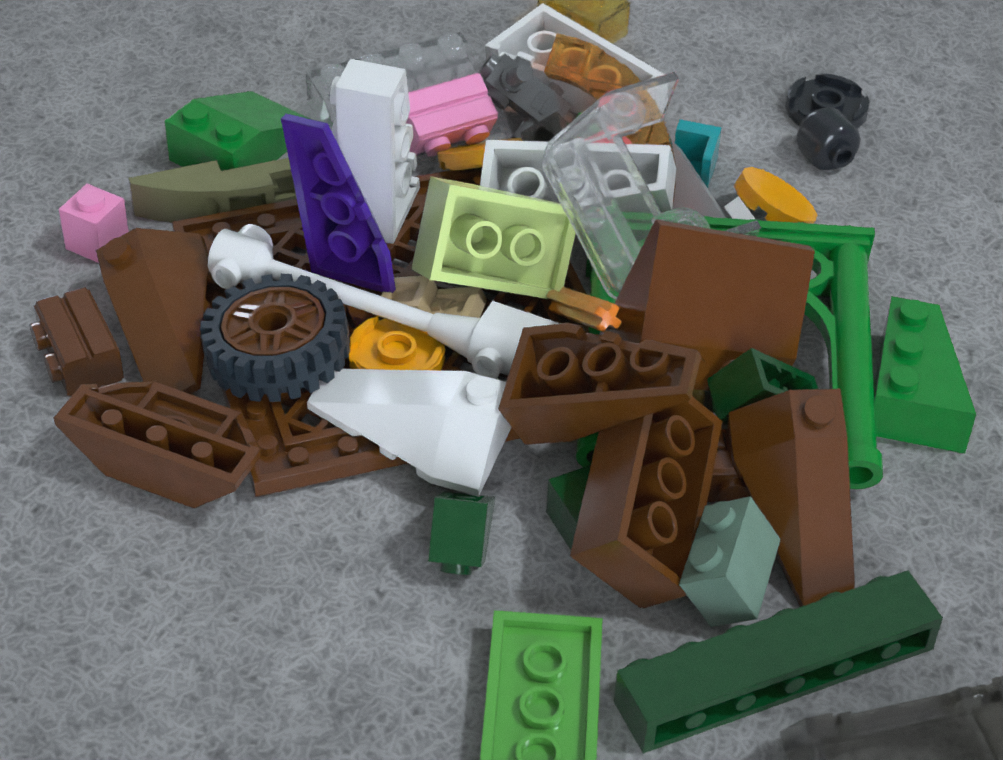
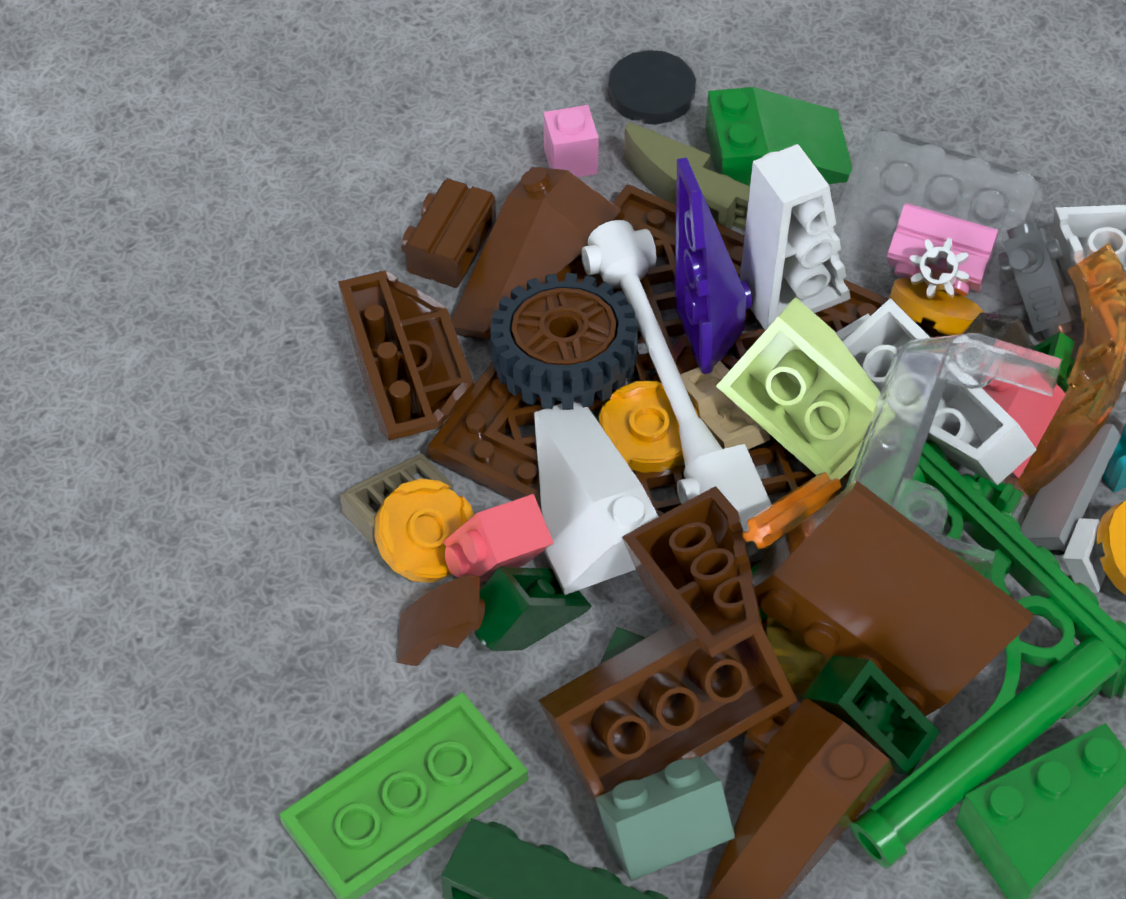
camera: 50 degrees right, 10 degrees up
(98, 156) = (652, 86): none -> black tile
(267, 567) = (359, 498): none -> dark tan slope
(327, 537) = (414, 527): none -> light orange tile
(404, 490) = (498, 538): none -> coral brick
(421, 574) = (441, 618): none -> reddish brown slope
(477, 110) = (933, 256): none -> white gear

